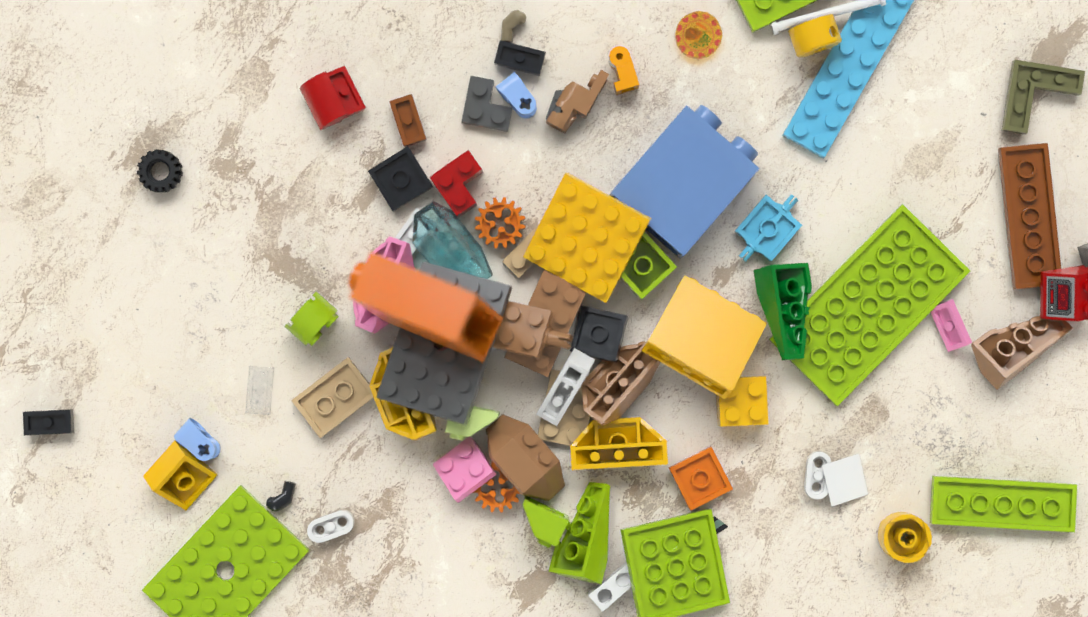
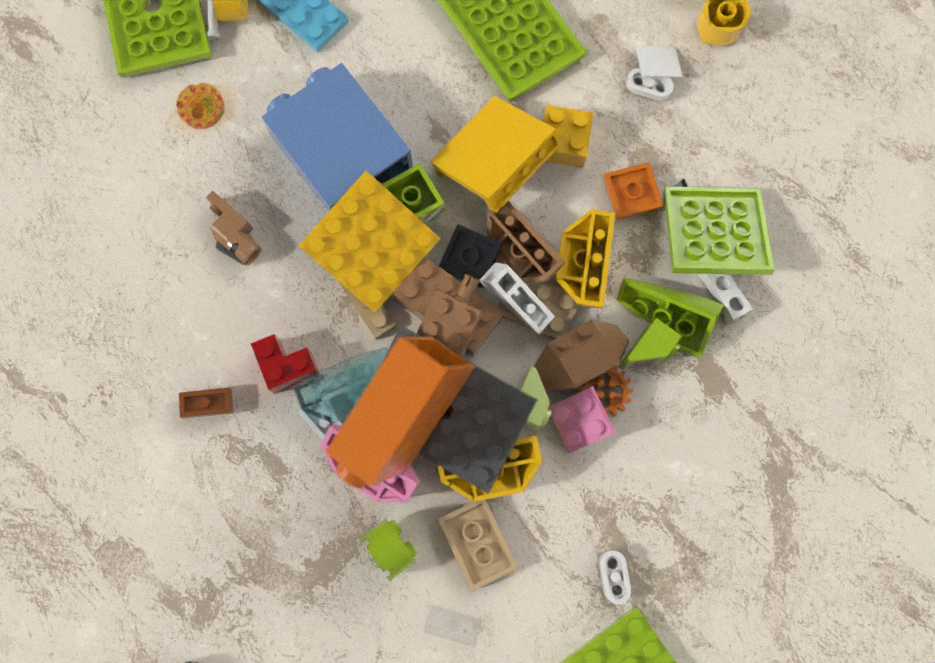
camera: 85 degrees left, 10 degrees down
(282, 500) = (576, 623): black arm -> none
(331, 97) = (158, 478): red brick -> none
(400, 178) = (264, 423): black plate -> none
(480, 111) = (214, 329): dark grey plate -> none
(497, 209) = (334, 345): orange gear -> none
(510, 22) = (133, 275): dark tan arm -> none
(514, 93) = (209, 286): light blue piece -> none
(519, 58) = (173, 276): black plate -> none
(622, 64) = (214, 178): light orange leg -> none
(768, 228) = (402, 79): medium azure plate -> none
(784, 297) = (470, 77): green wedge -> none

